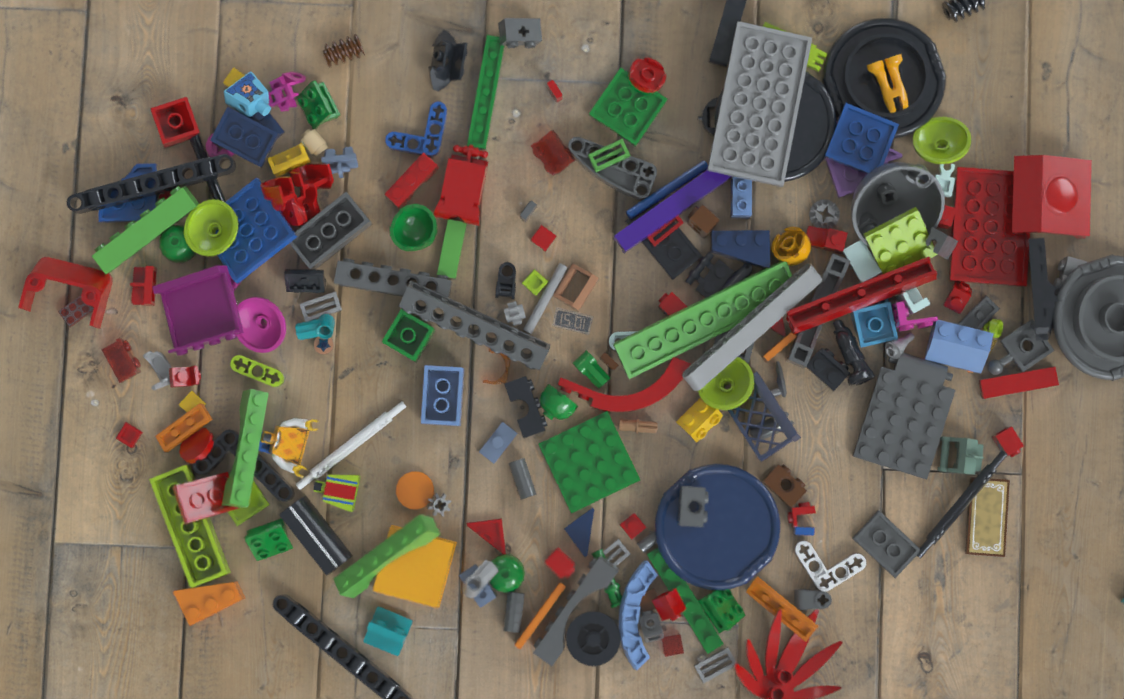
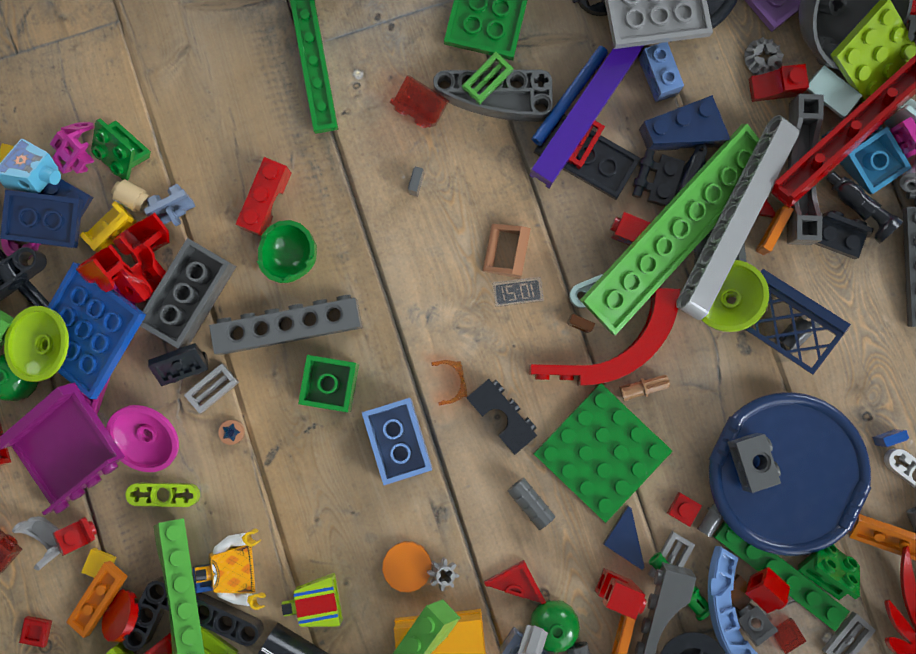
camera: 20 degrees left, 0 degrees up
(316, 328) = (219, 414): teal piece -> none
(343, 50) = (124, 74): reddish brown piece -> none
(350, 445) = (309, 542): white axle -> none
(423, 142) = (261, 146): blue beam -> none
(451, 248) = (342, 260): bright green tile -> none
(456, 53) = (253, 60): black piece -> none
(463, 186) = (327, 181): red piece -> none
(469, 316) = (393, 332): dark grey brick -> none
(498, 442) = (485, 470): sand blue tile -> none
(506, 282) = (422, 275): black piece -> none
(514, 313) = (446, 308): light grey gear -> none
(535, 282) = (455, 263): lime tile -> none
(543, 238) = (446, 207): red tile -> none
(545, 298) = (475, 277): light grey piece -> none
(554, 90) = (393, 29): red tile -> none
(556, 404) = (538, 398): green cylinder -> none
(588, 366) = (558, 338): green piece -> none
(699, 420) = (713, 352): yellow bracket -> none
(702, 221) = (628, 114): reddish brown brick -> none
(773, 481) = (861, 394): reddish brown brick -> none
(780, 381) = (794, 275): flat silver bar -> none
(791, 246) = (744, 104): light orange cylinder -> none
(803, 508) = (879, 412): red bracket -> none

